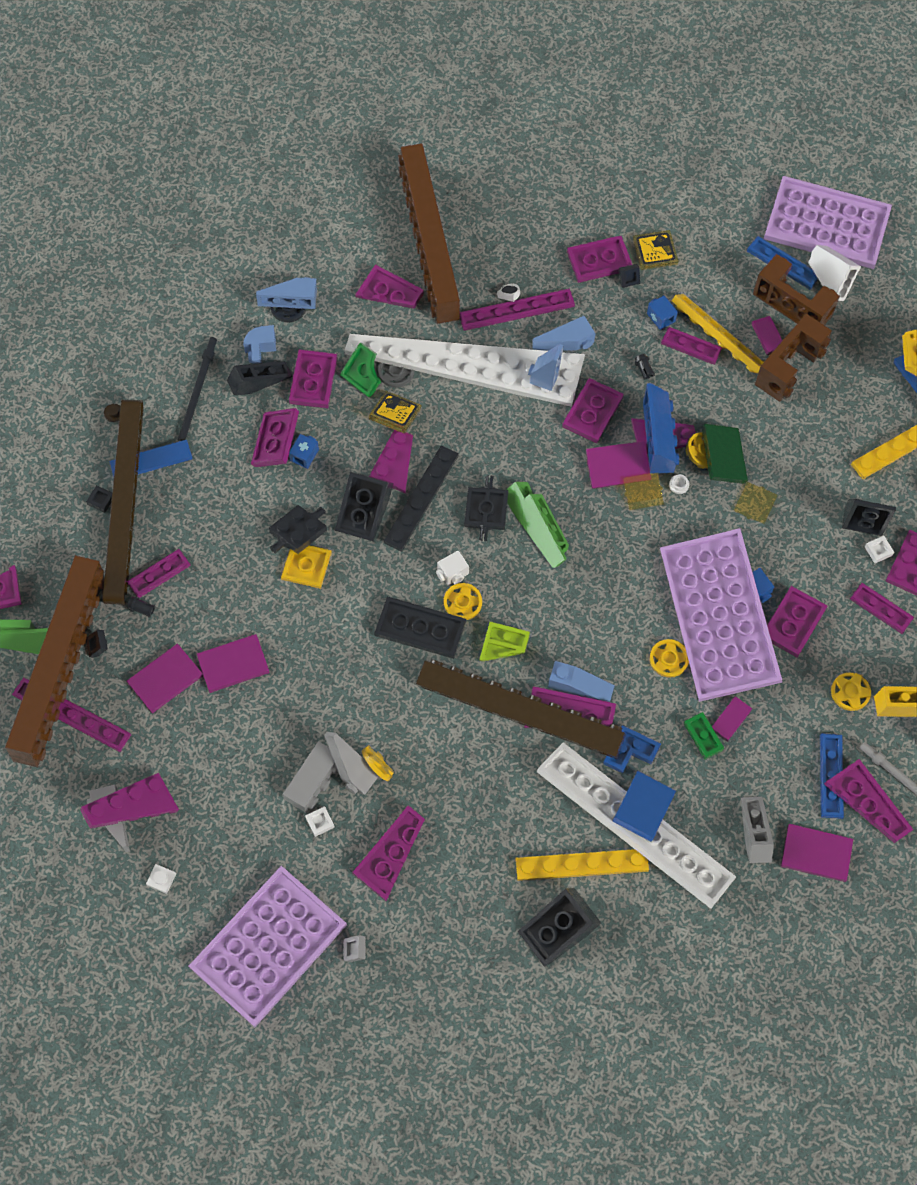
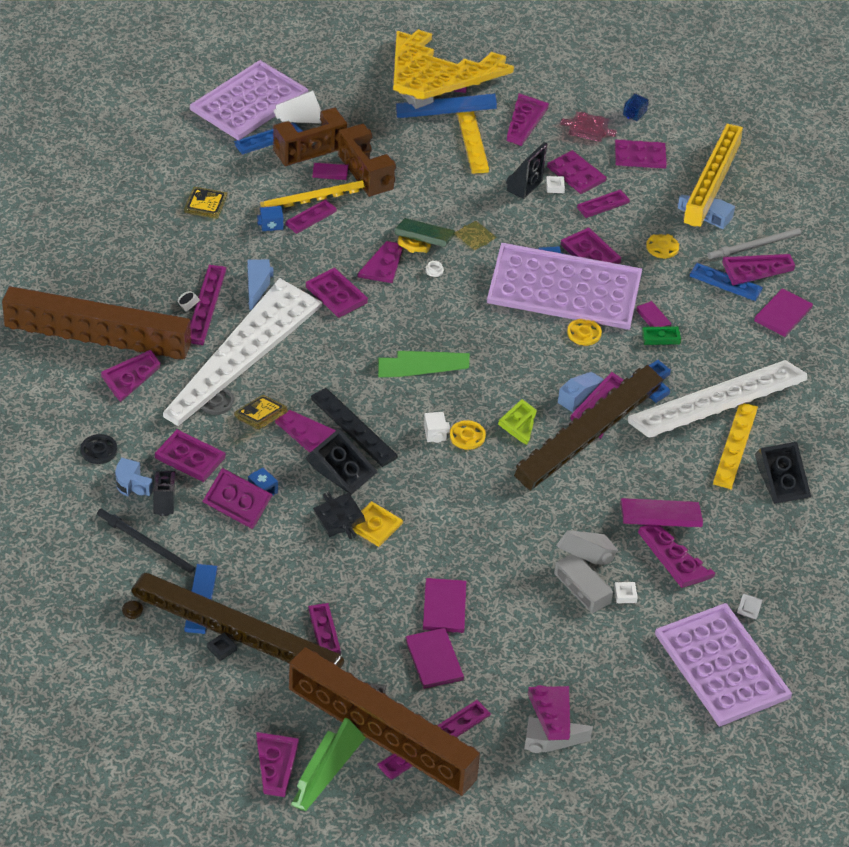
camera: 70 degrees left, 20 degrees down
(140, 606) = (353, 651): black pin -> none
(161, 878) = (628, 721): white plate -> none
(290, 294) = (97, 432): medium blue slope -> none
(361, 371) = (205, 419): green tile -> none
(377, 763) = (606, 529): yellow wheel -> none
(420, 627) = (478, 468): black plate -> none
(441, 820) = (661, 512): none -> magenta tile
(486, 508) = (390, 387): black plate -> none
(546, 369) = (291, 292): medium blue slope -> none
(598, 258) = (192, 236): magenta plate -> none
(612, 463) = (397, 295): magenta tile -> none
(629, 275) = (222, 223): black plate -> none
(642, 362) = (314, 248): black pin -> none
(643, 491) = (428, 291): clear yellow piece -> none
(644, 806) = (706, 386): blue tile -> none
(659, 430) = (386, 255): blue slope -> none
(756, 830) = (758, 334): light grey slope -> none

